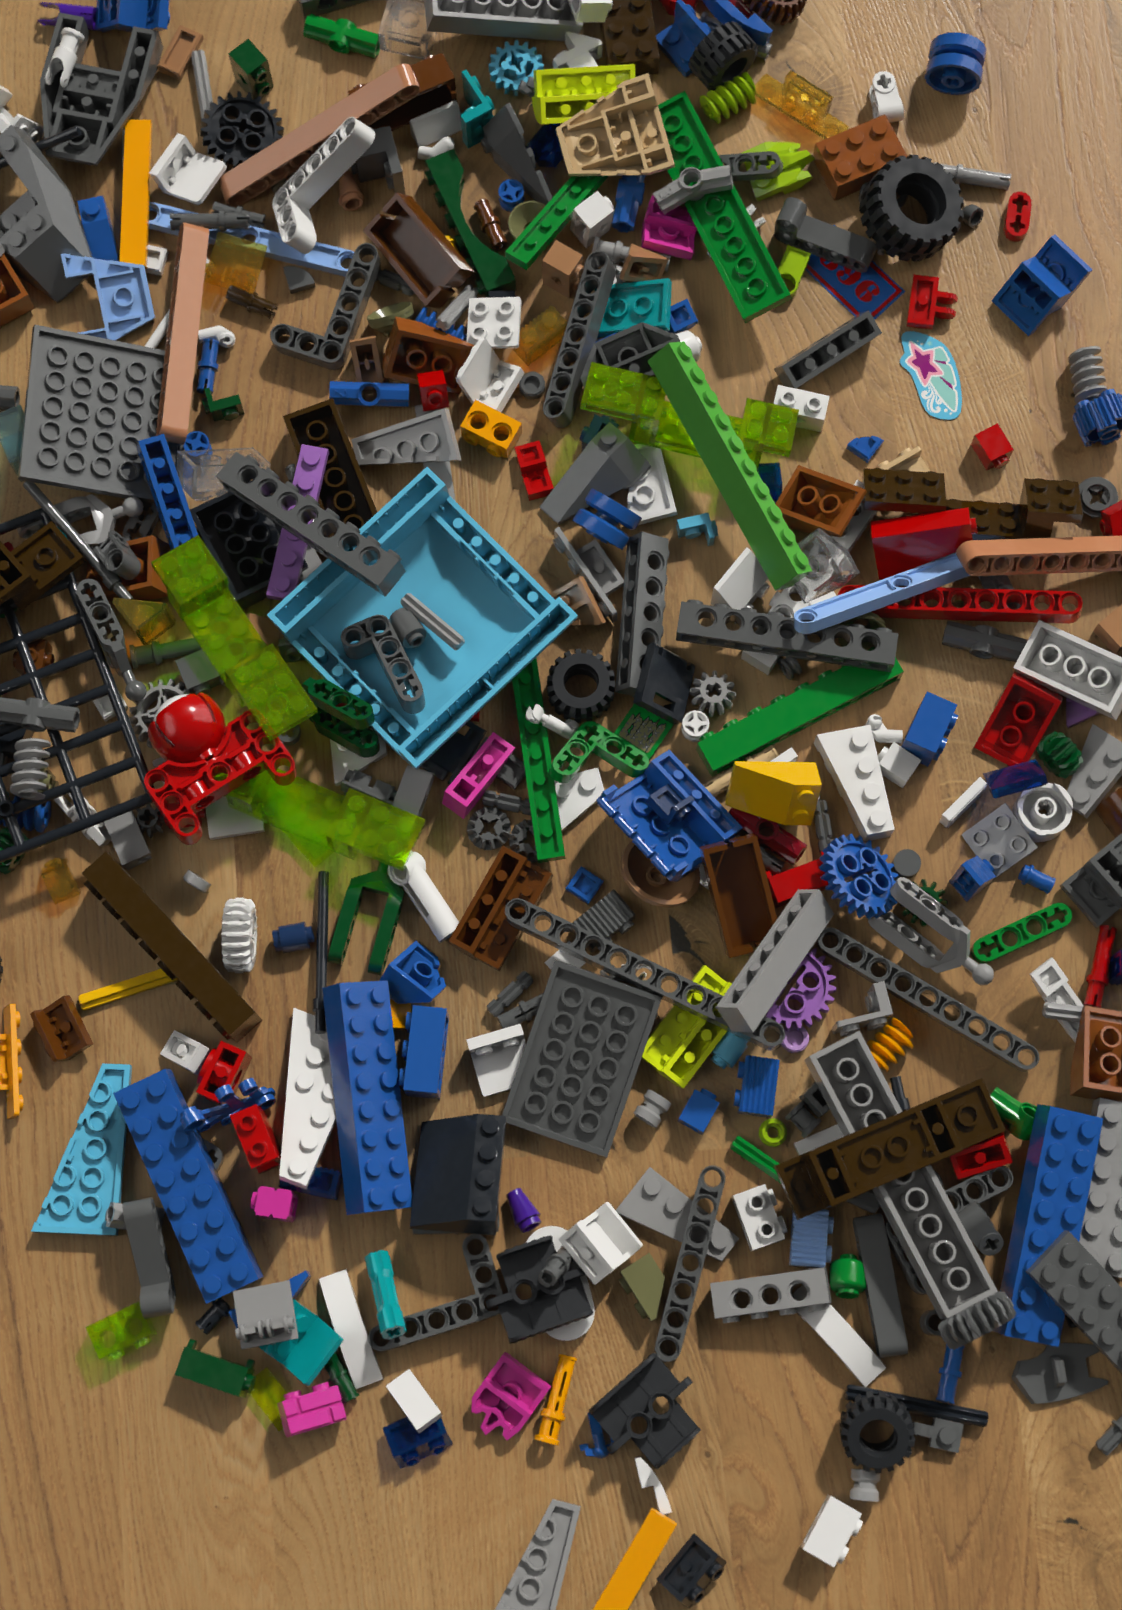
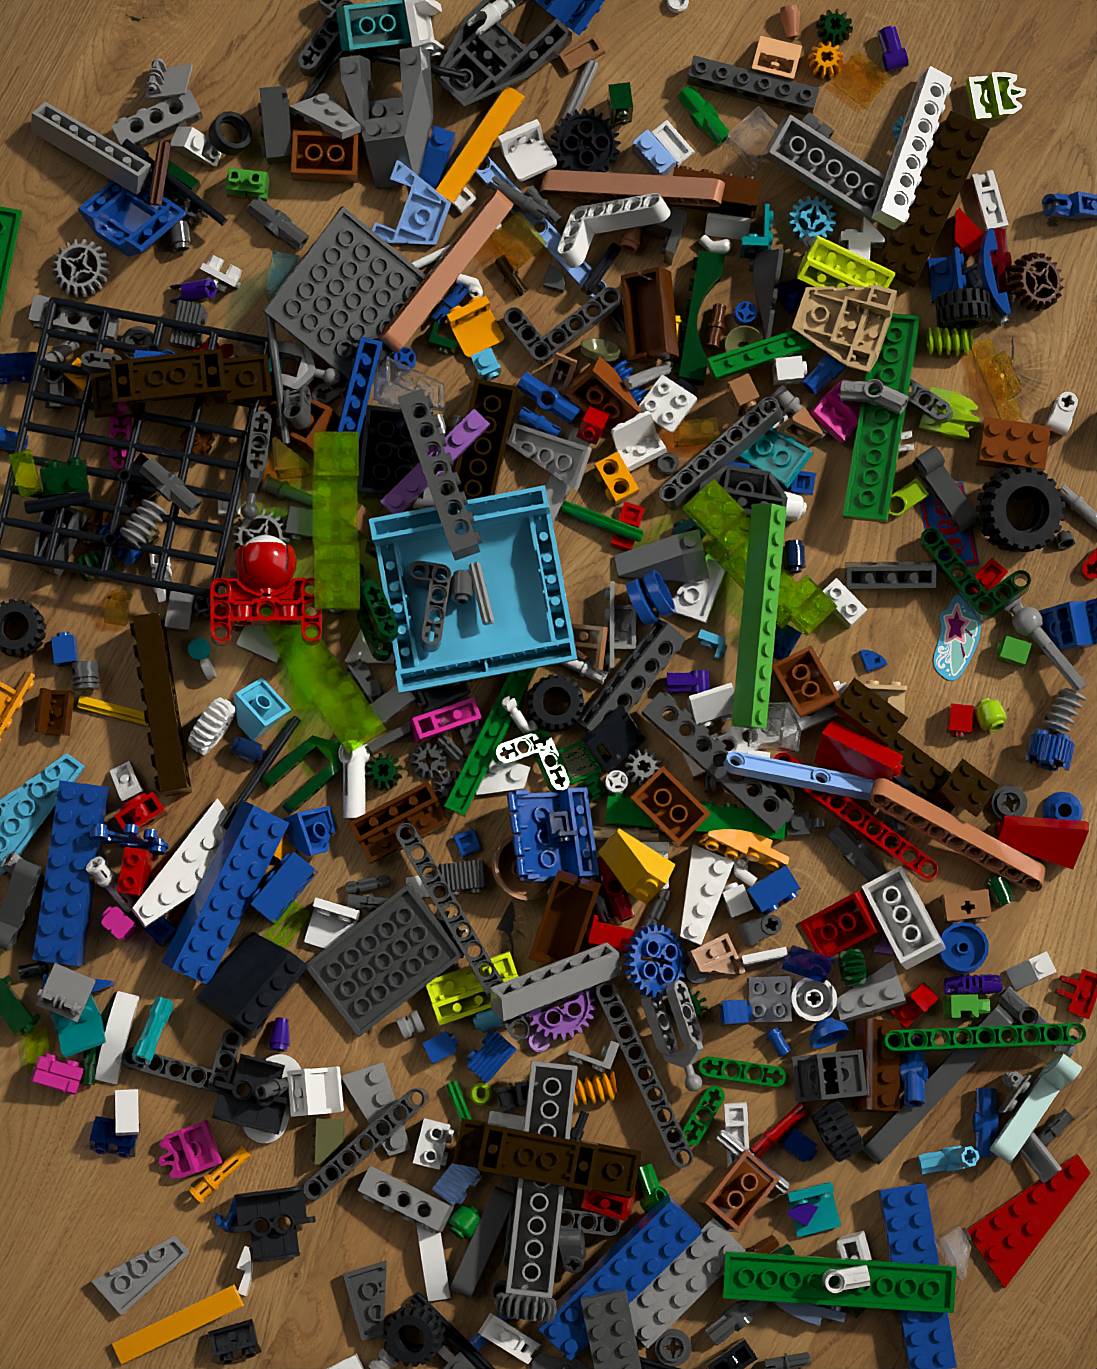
camera: 30 degrees right, 5 degrees up
(31, 958) = (64, 649): none -> blue brick
(70, 971) = (85, 676): none -> dark grey piece
(174, 868) = (199, 649): none -> teal tile
(231, 1164) = (107, 879): none -> white pin
(247, 371) = (475, 326): none -> light orange bracket
(277, 887) = (259, 708): none -> medium azure slope
(283, 400) = (486, 364): none -> medium azure bracket
(313, 98) = (653, 154): none -> light blue brick
(327, 81) = (673, 142): none -> white tile
(338, 241) = (601, 268): none -> black axle
(372, 424) = (538, 422): none -> blue pin
(434, 830) = (389, 739): none -> dark grey tile
(439, 871) = (384, 779): none -> dark green gear
(458, 1065) = (277, 939): none -> clear neon green tile
(505, 479) = (602, 521): none -> green axle
(584, 635) = (586, 669): none -> white pin
(677, 744) = (594, 786): none -> dark green tile
(700, 581) = (693, 682): none -> dark purple piece
(726, 395) = (794, 556): none -> dark blue brick
(770, 709) = (670, 806): none -> dark orange brick
(801, 1427) = (367, 1296): none -> dark grey wing
(873, 699) = (739, 843): none -> light orange slope
(909, 305) = (969, 580): none -> dark green beam
(909, 649) = (800, 823): none -> dark grey plate
(917, 834) = (717, 957): none -> medium nougat wing
(938, 780) = (755, 930): none -> dark grey piece
(976, 1367) = (508, 1338): none -> white plate
(993, 312) = (1028, 622): none -> light grey piece
(997, 349) = (1013, 651): none -> bright green brick
(1004, 983) = (716, 1104): none -> green beam
(1019, 424) = (990, 715): none -> lime head
(1081, 835) = (827, 1033): none -> blue piece

